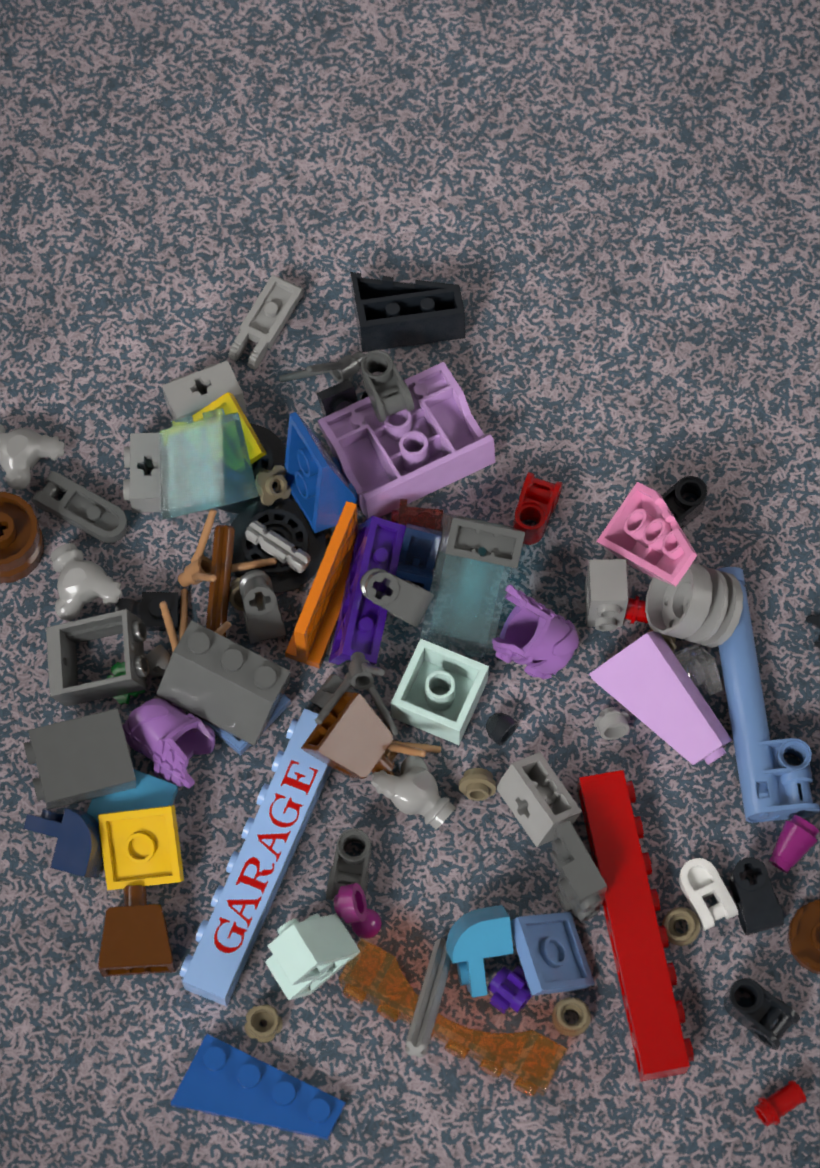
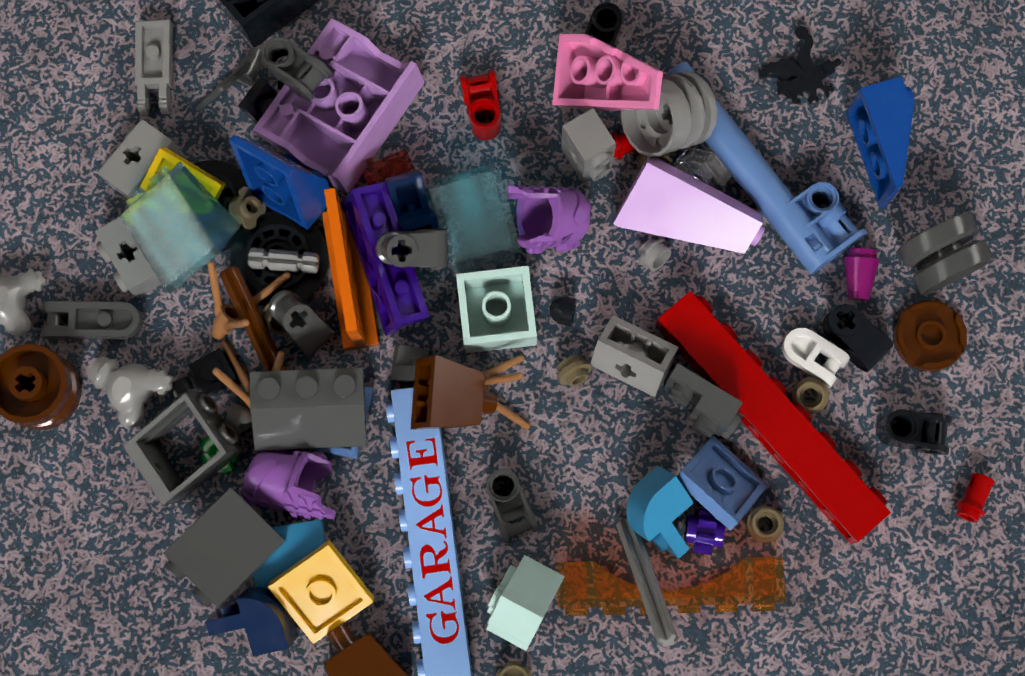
camera: 25 degrees left, 10 degrees up
(352, 907) = (538, 542): magenta plate -> none
(361, 678) = (425, 338): dark grey plant -> none
(414, 791) = (526, 409): light grey animal -> none
(481, 540) = (446, 160): dark grey window -> none

